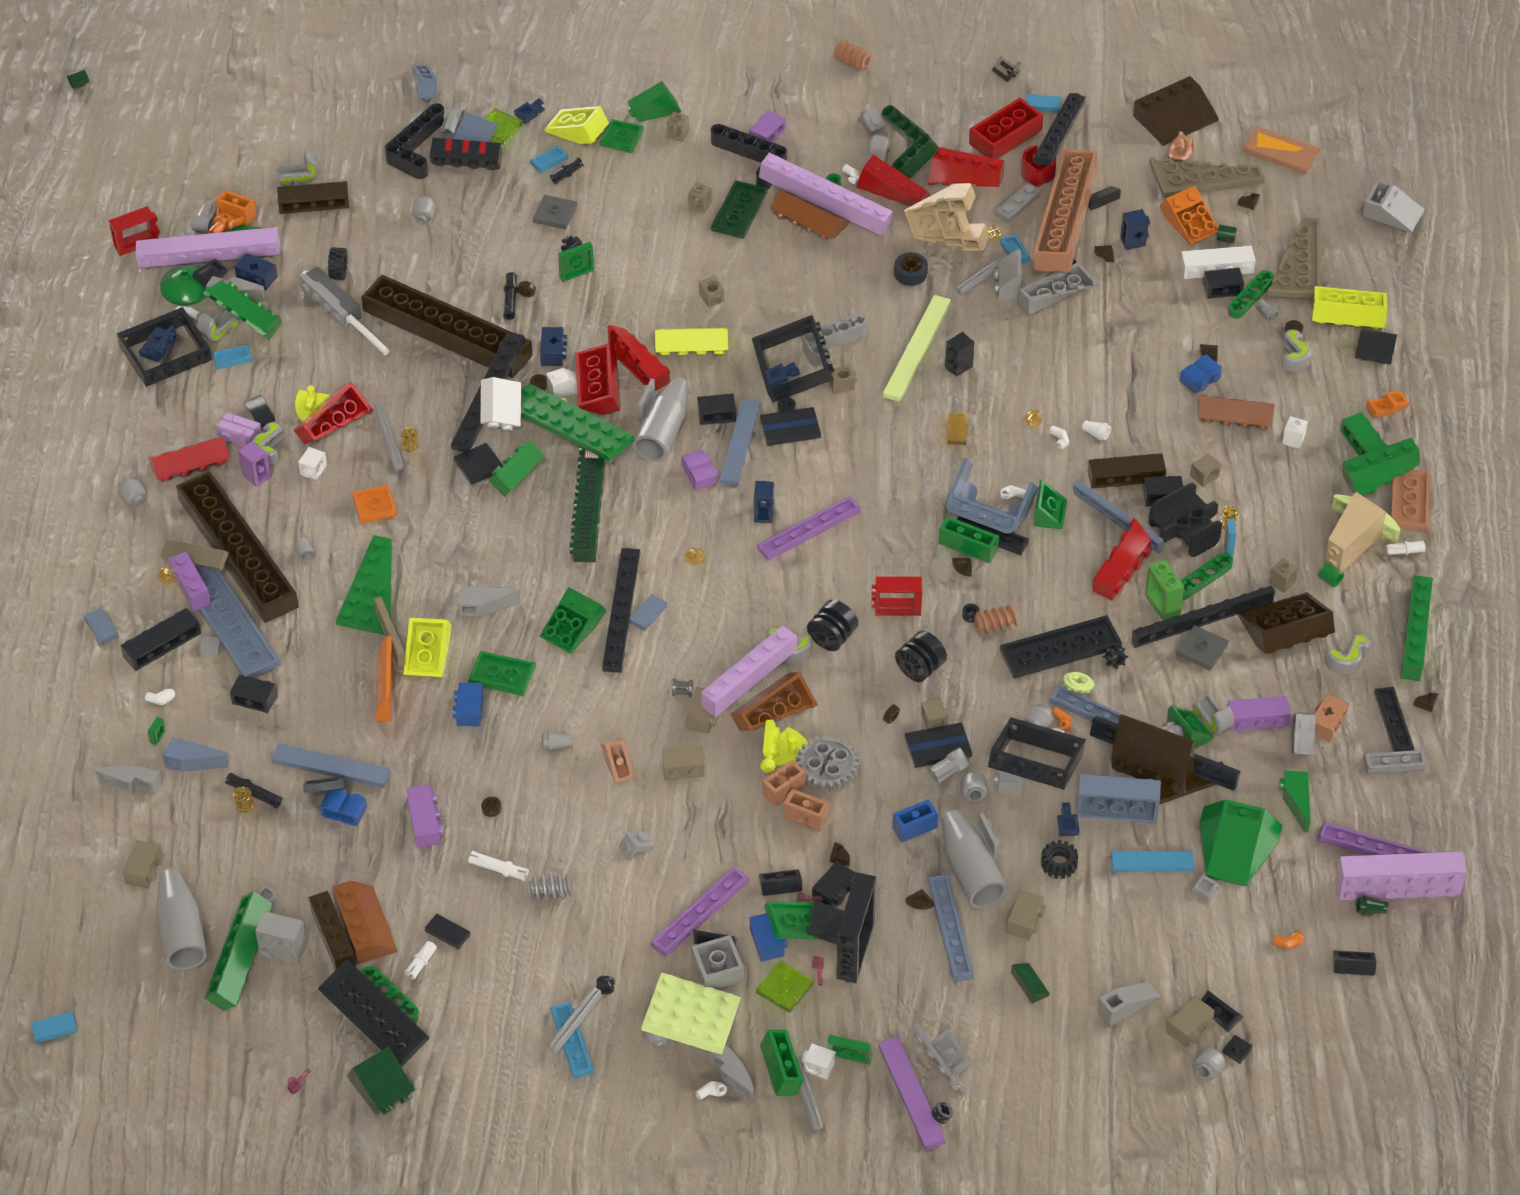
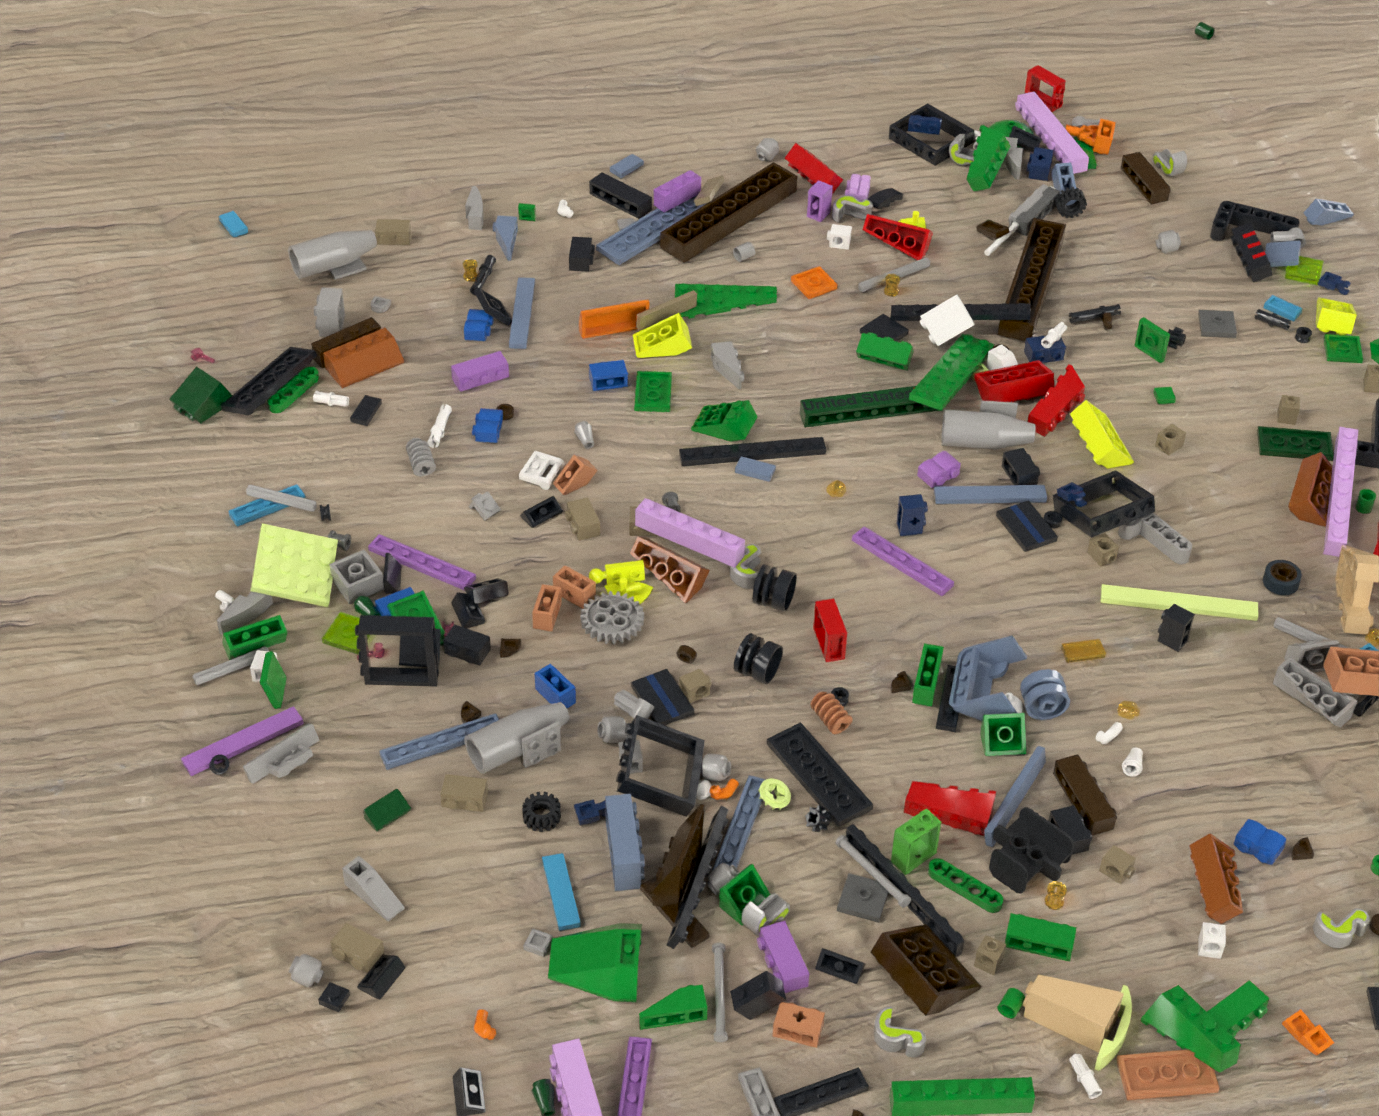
camera: 75 degrees right, 5 degrees down
(232, 357) = (941, 174): dark azure tile -> none
(237, 952) = (306, 295): green brick -> none
(296, 260) = (1063, 178): none -> sand blue slope
(350, 337) = (992, 229): none -> dark brown tile
(514, 821) = (488, 425): none -> blue brick
(549, 329) = (1054, 335): none -> white axle
(593, 791) = (536, 467): none -> white plate
(594, 160) = (1303, 335): none -> black bush
(644, 279) = (1164, 395): none -> green tile
(651, 978) = (345, 540): none -> dark grey bush
(655, 799) = (541, 512): none -> black slope
(758, 859) = (487, 590): none -> black slope
(759, 964) = (365, 606): none -> dark green cone
(1017, 463) = (1045, 694): none -> sand blue wheel
(1218, 617) = (903, 900): none -> light grey bar
(1230, 537) = (1017, 893): dark azure tile -> none
(1269, 539) = (1040, 937): none -> green brick
(1269, 679) = (840, 966): none -> black slope
(1282, 766) = (720, 1034): none -> light grey bar

